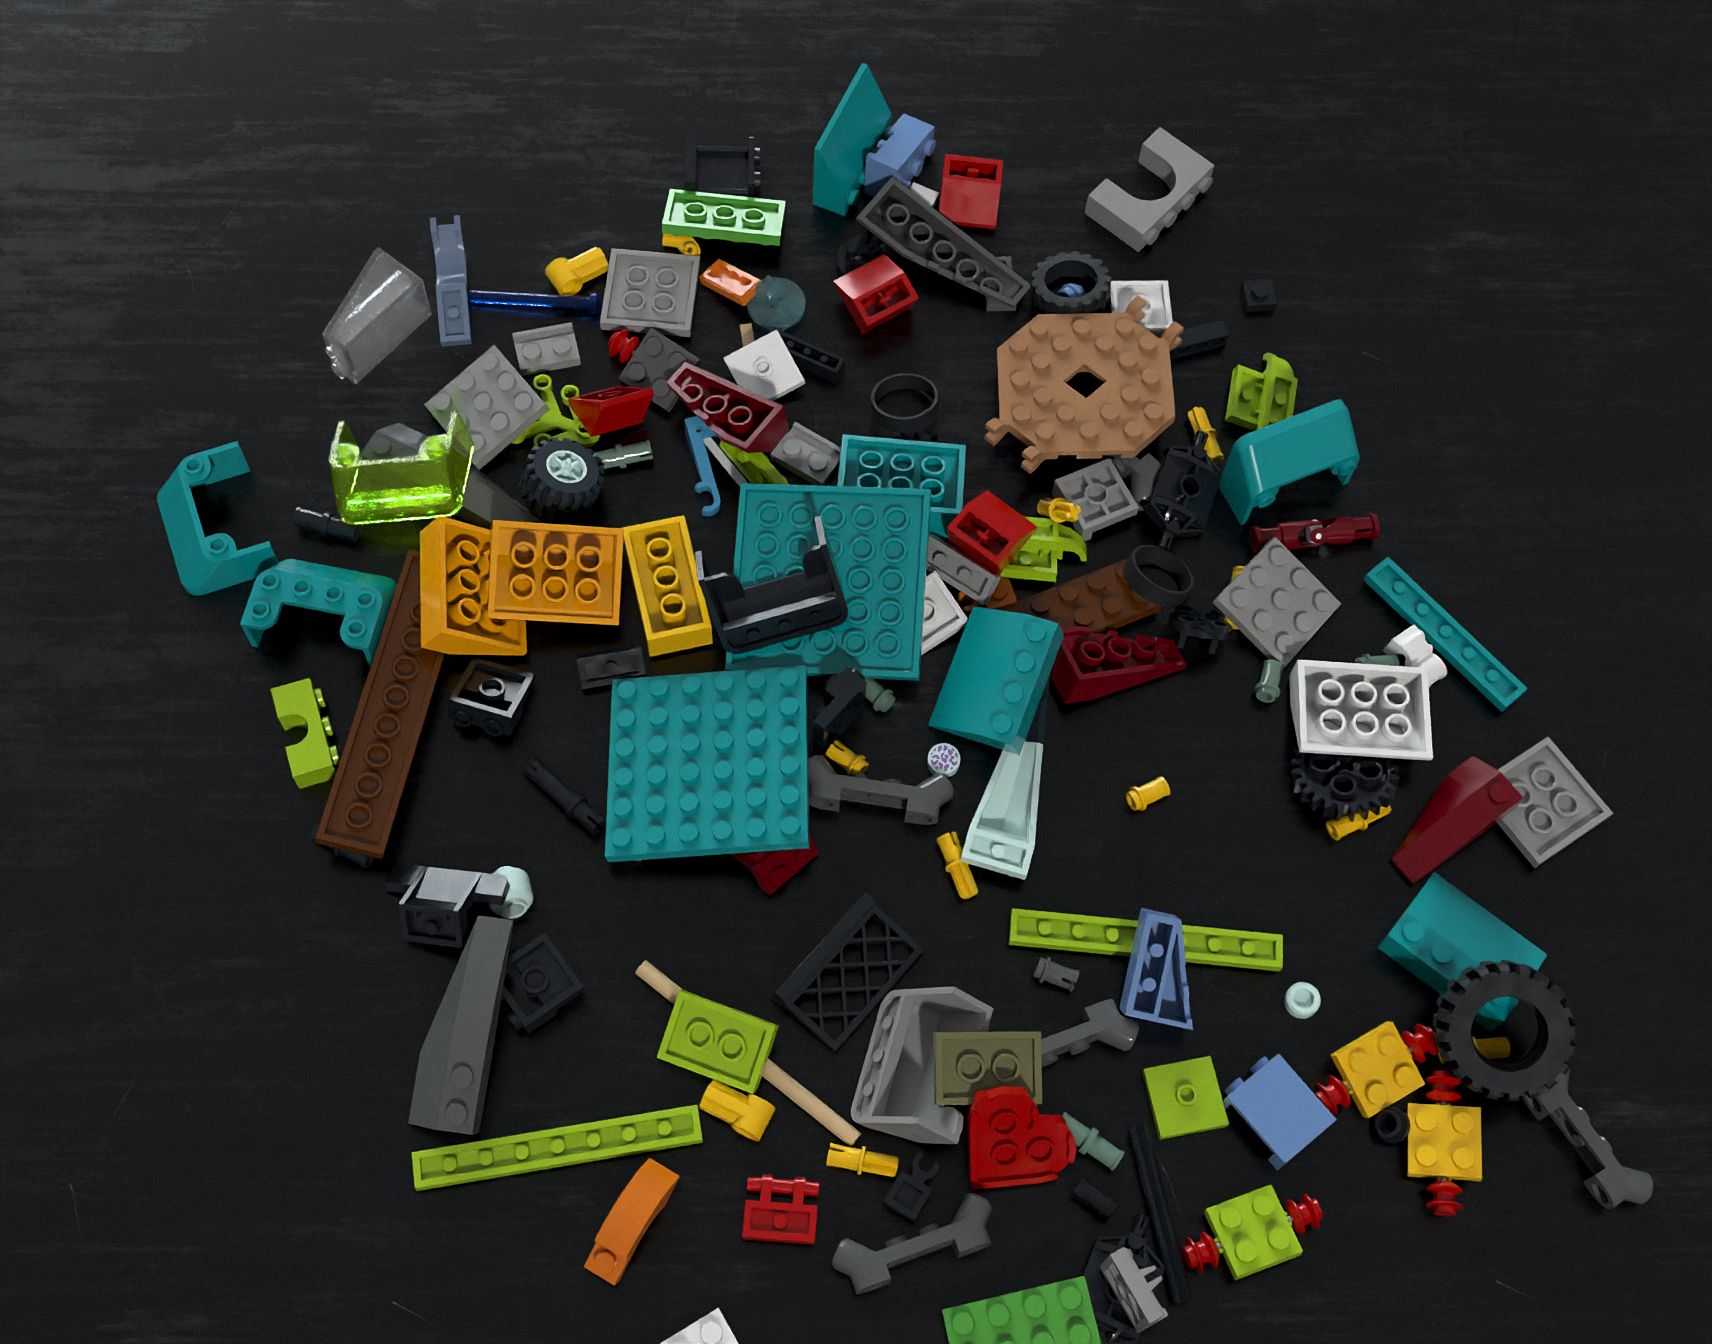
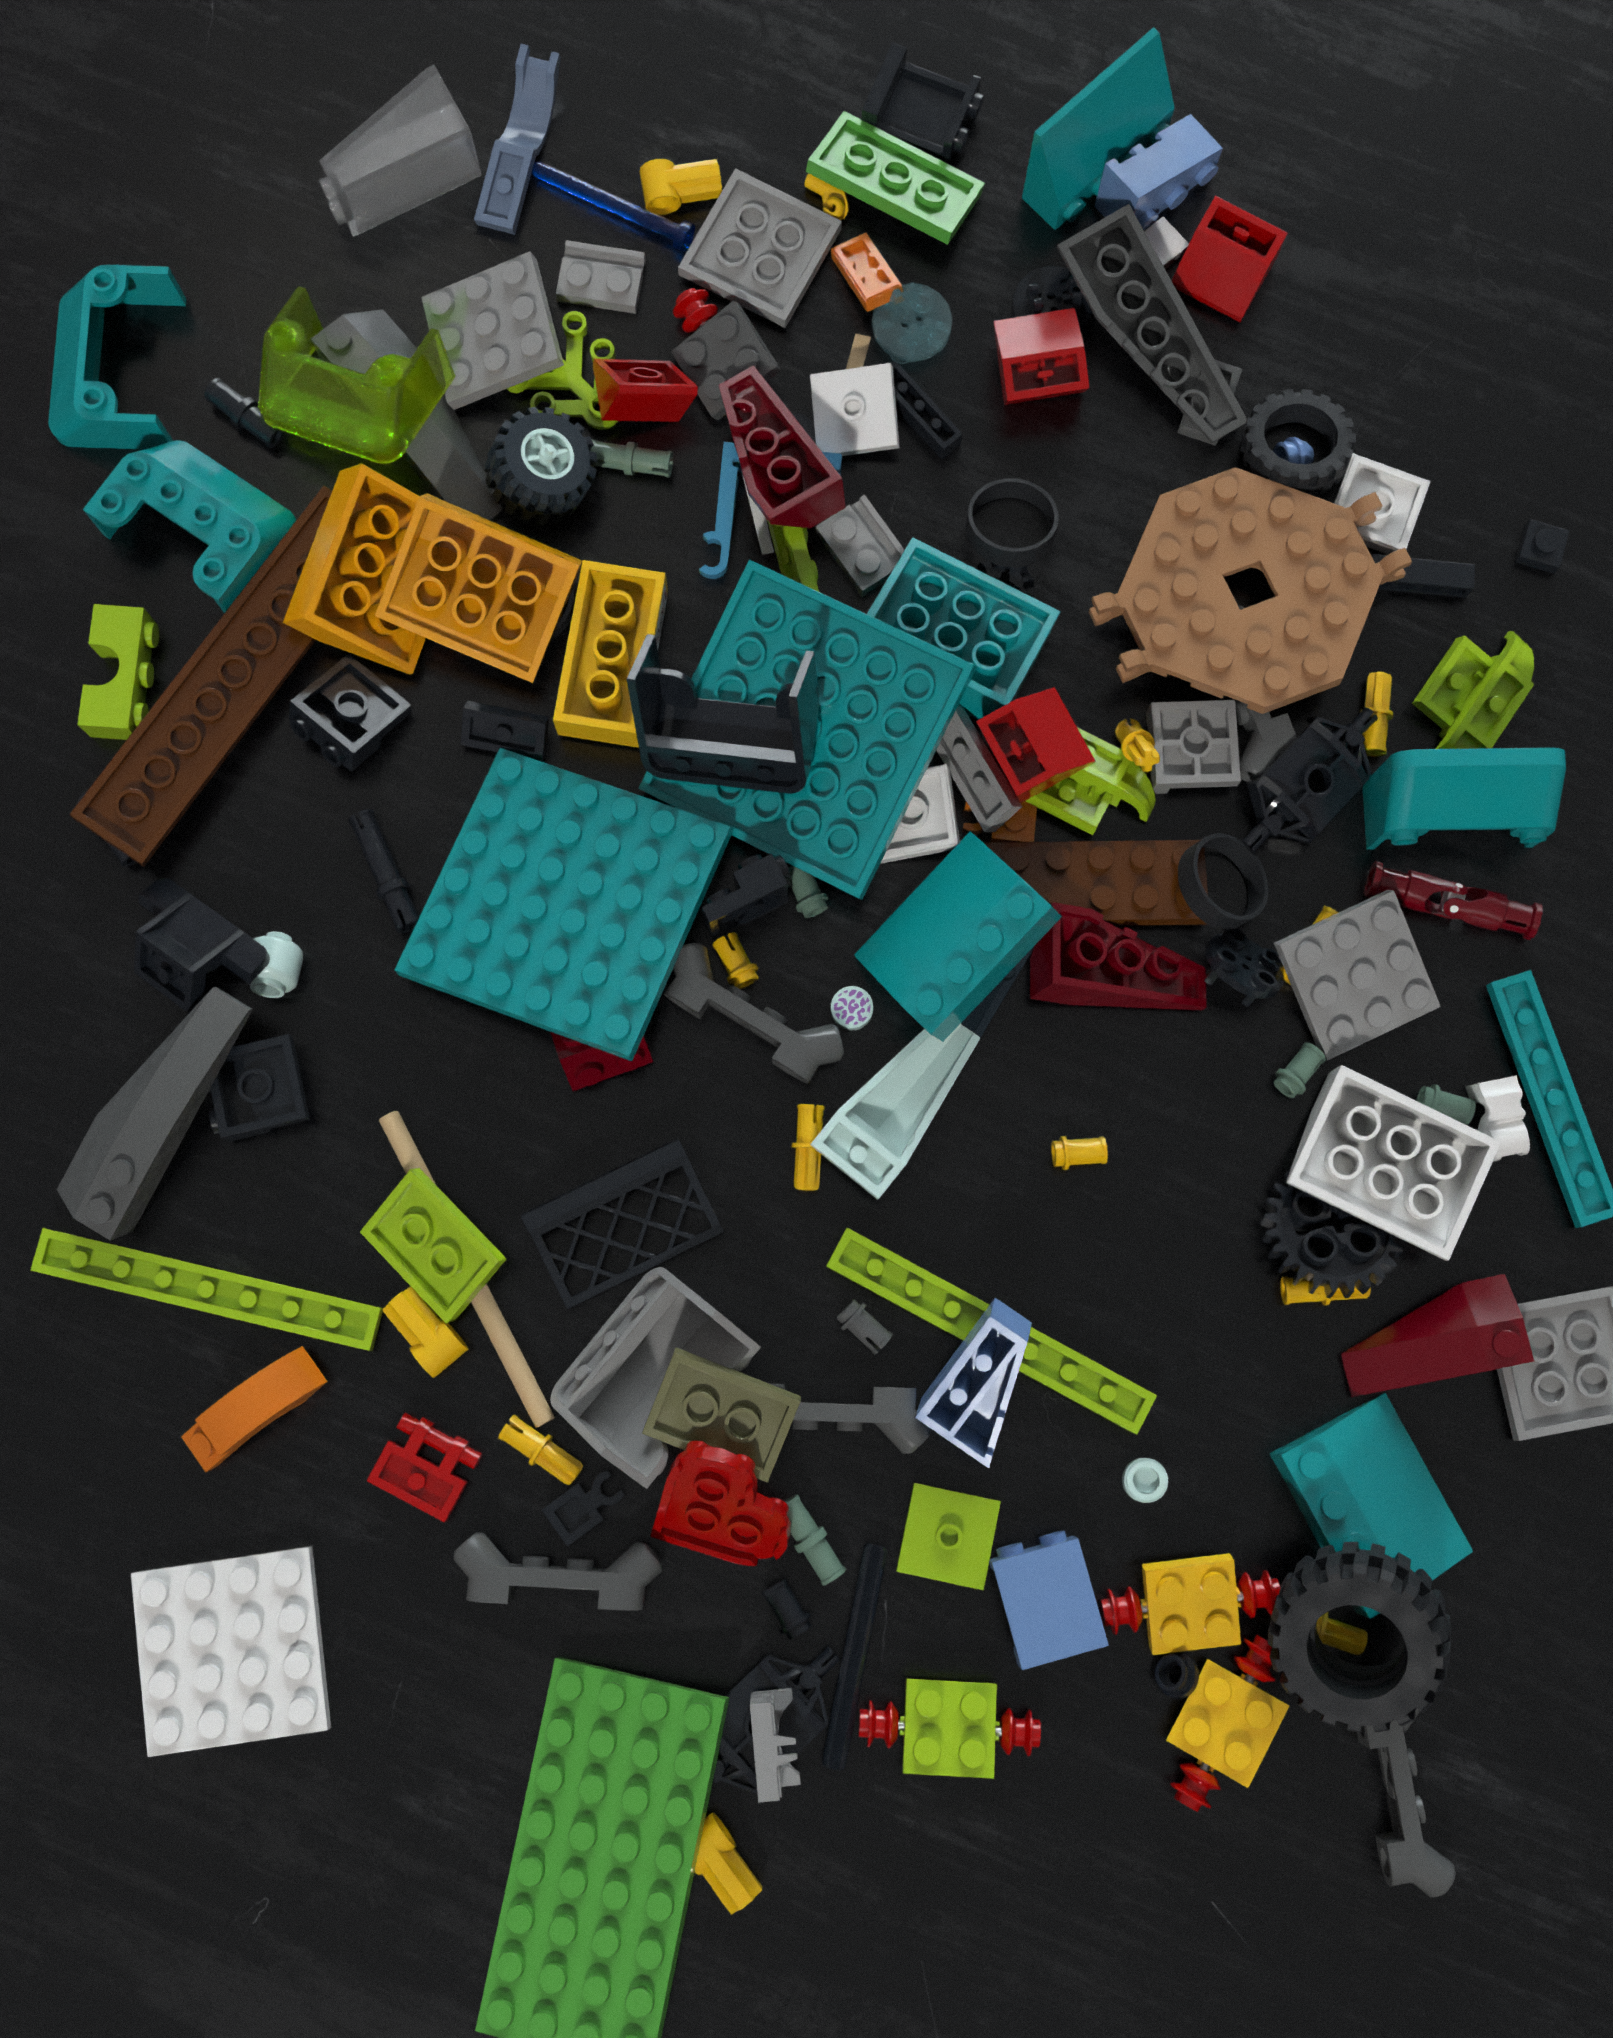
camera: 25 degrees right, 15 degrees up
(1139, 220) = (1434, 382): light grey arch -> none

